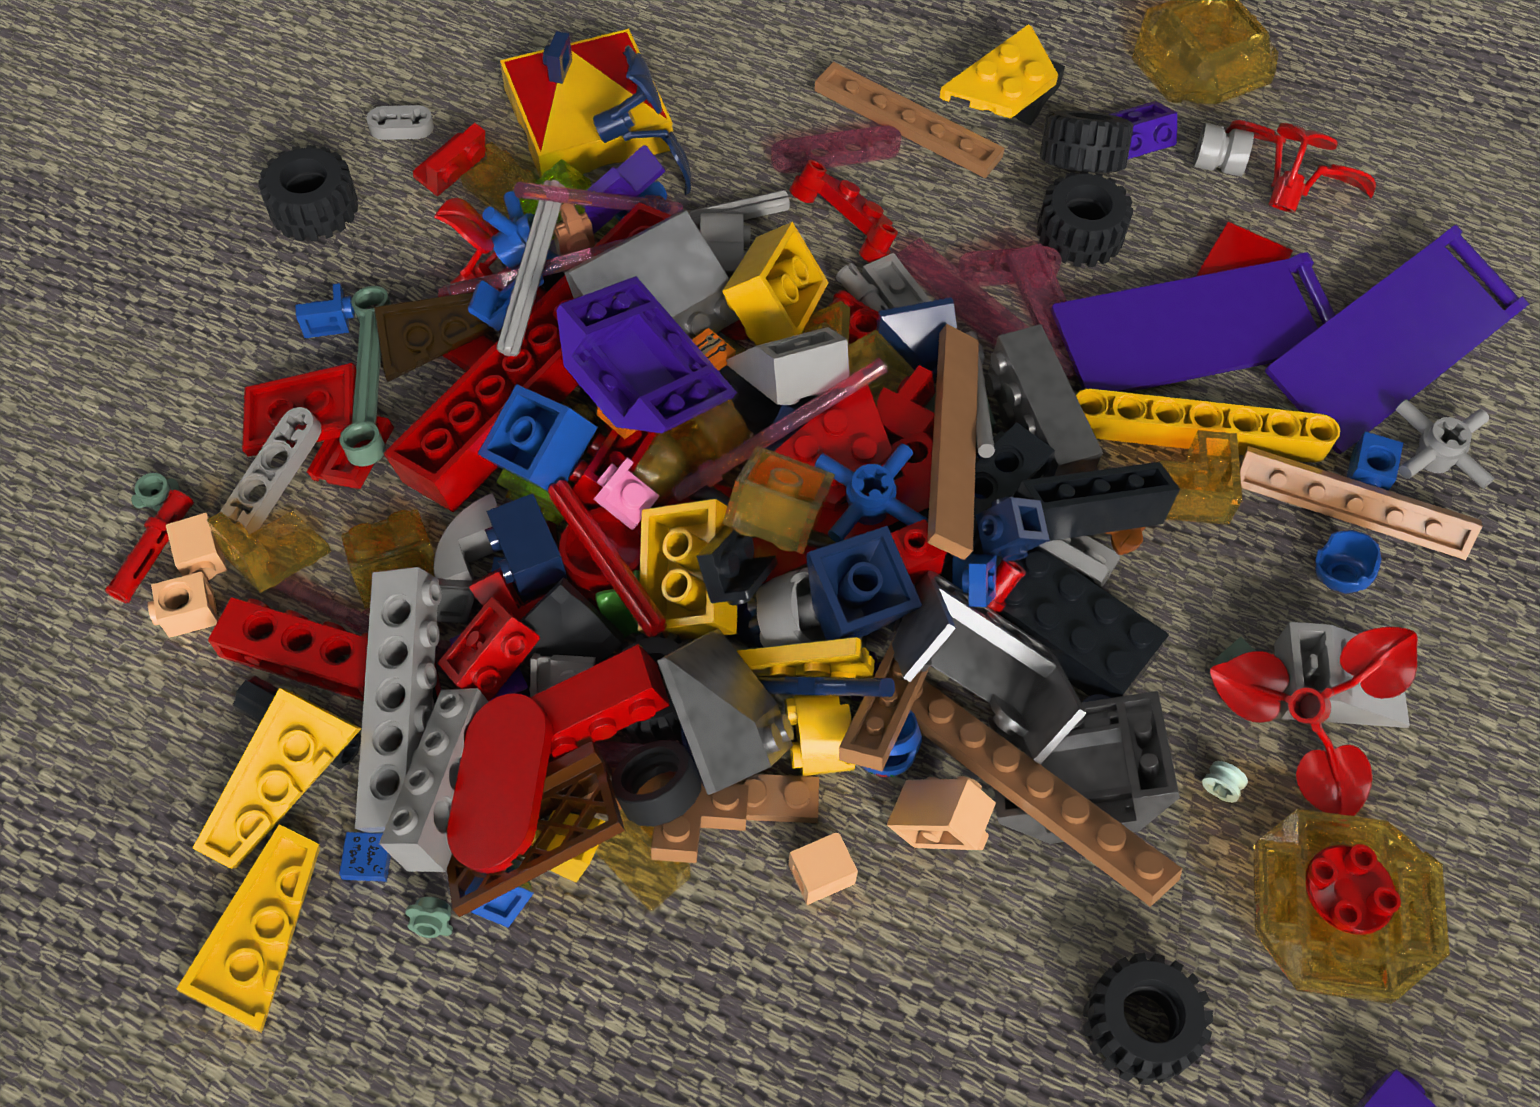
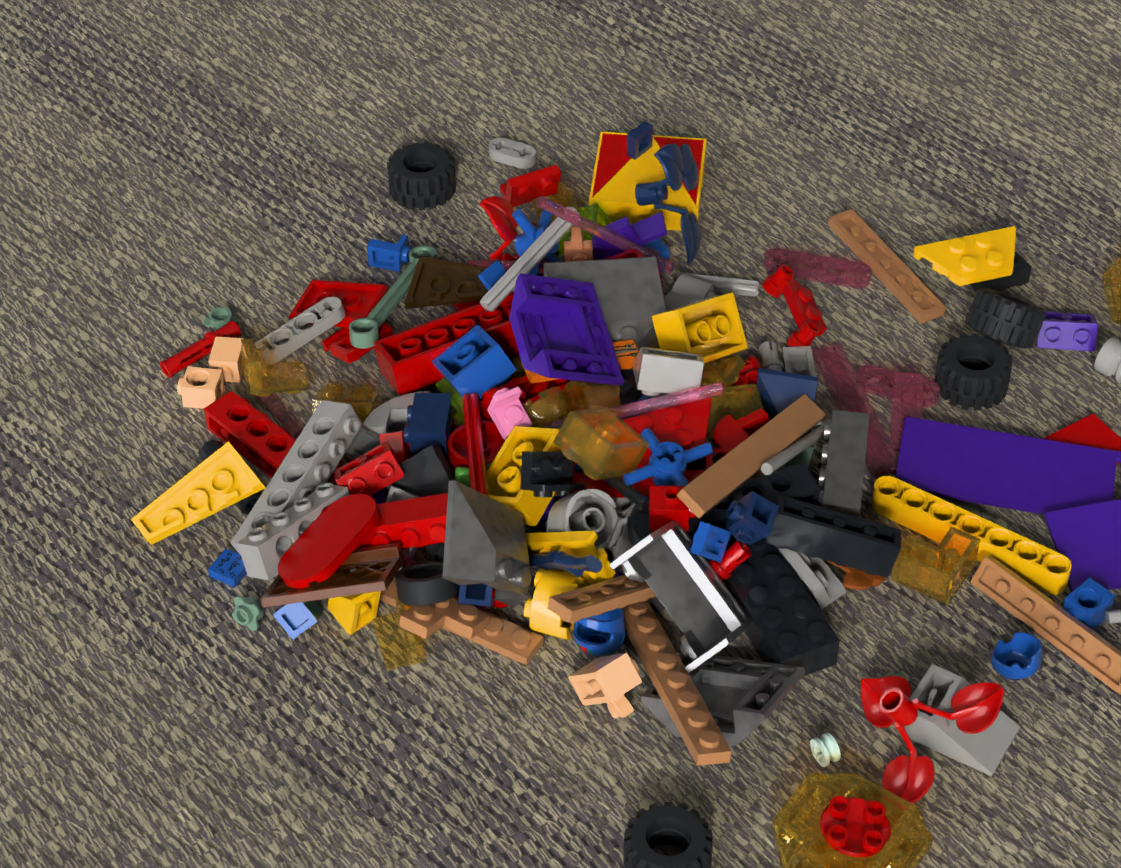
camera: 30 degrees right, 15 degrees down
(250, 942) = (136, 582): yellow wing -> none
(822, 868) = (509, 684): light nougat panel -> none
(860, 585) = (619, 506): dark blue slope -> none

